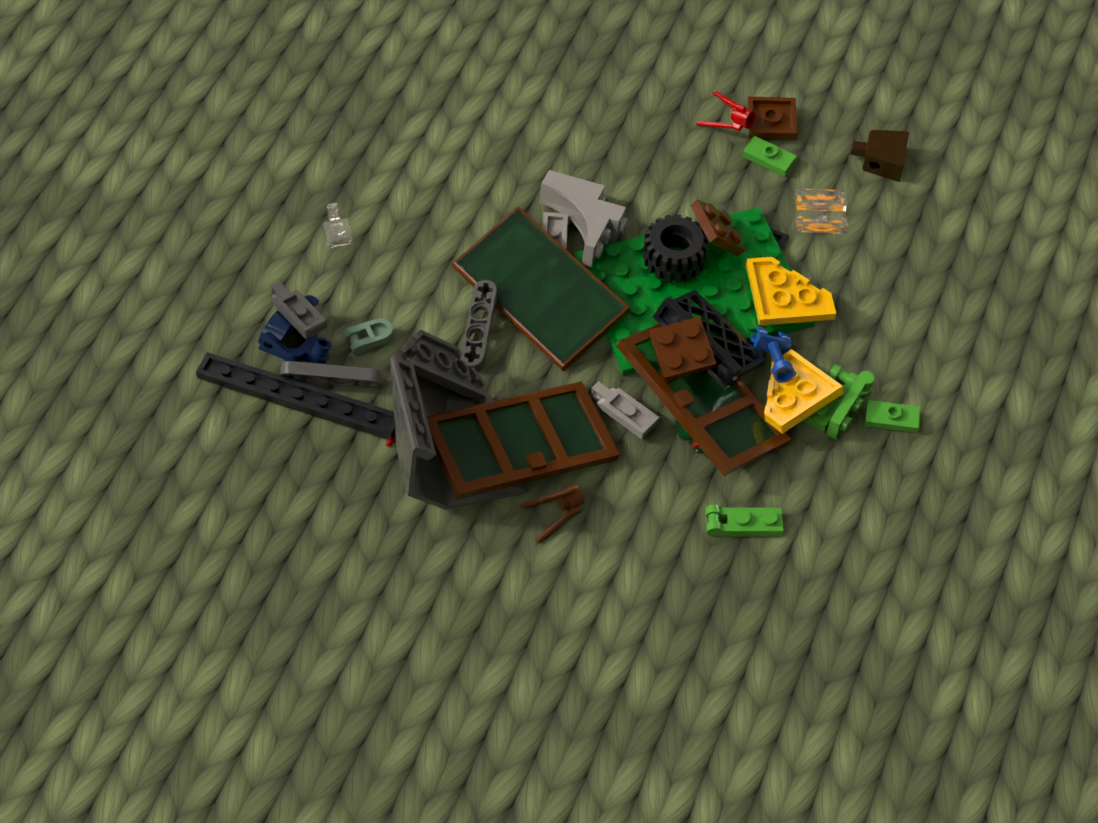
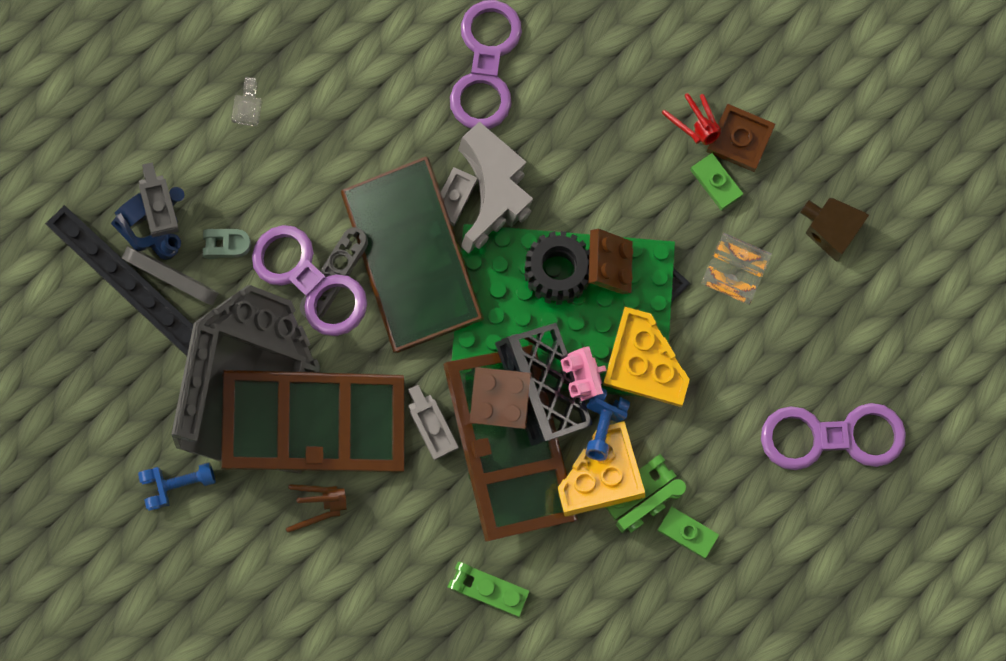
camera: 20 degrees right, 20 degrees up
(405, 558) = (204, 475): none -> blue bar
(466, 333) = (309, 280): none -> medium lavender bar
(528, 133) = (486, 63): none -> medium lavender bar
(740, 317) = (586, 374): none -> bright pink hips
(970, 303) = (833, 436): none -> medium lavender bar

